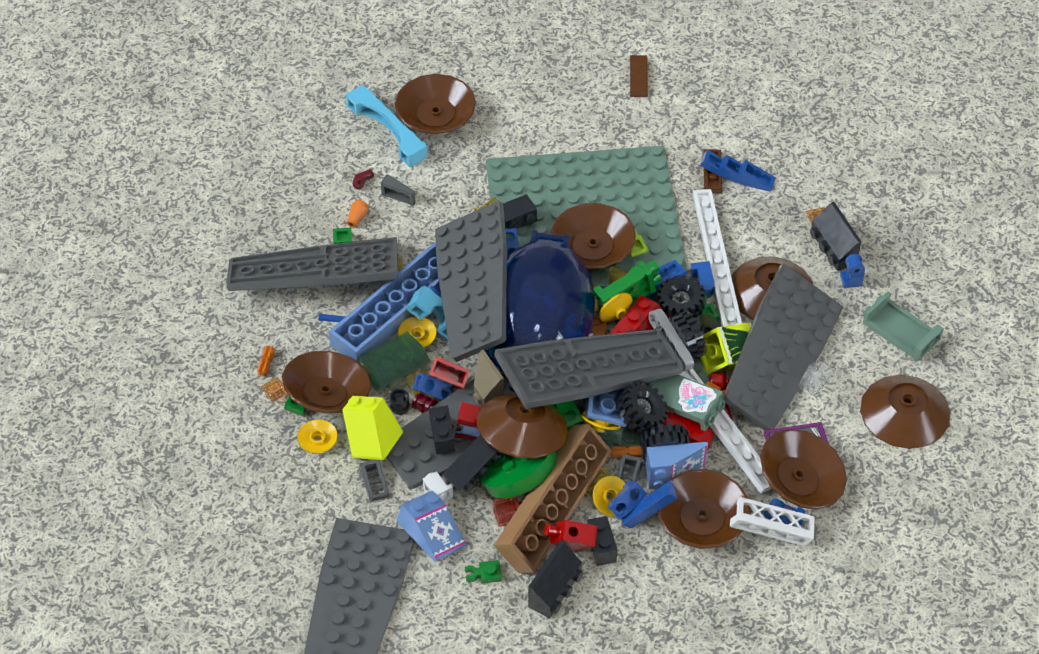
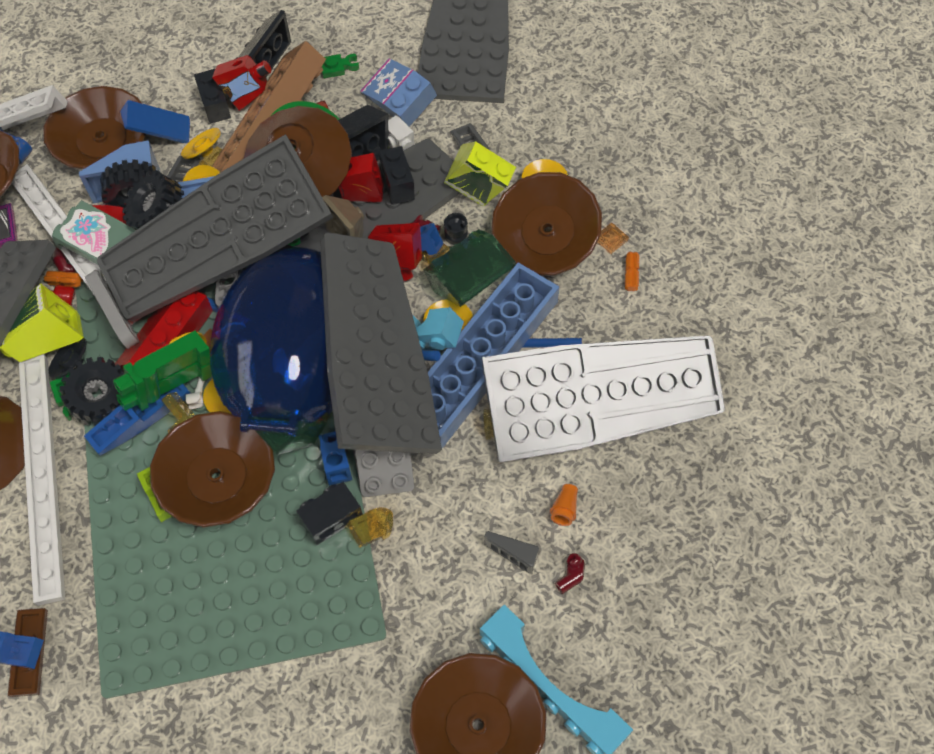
camera: 175 degrees right, 10 degrees up
(342, 235) = (577, 461): green plate -> none
(627, 499) = (182, 136): blue leg -> none
(689, 332) = (92, 318): black bush -> none
(704, 275) = (62, 445): blue leg -> none

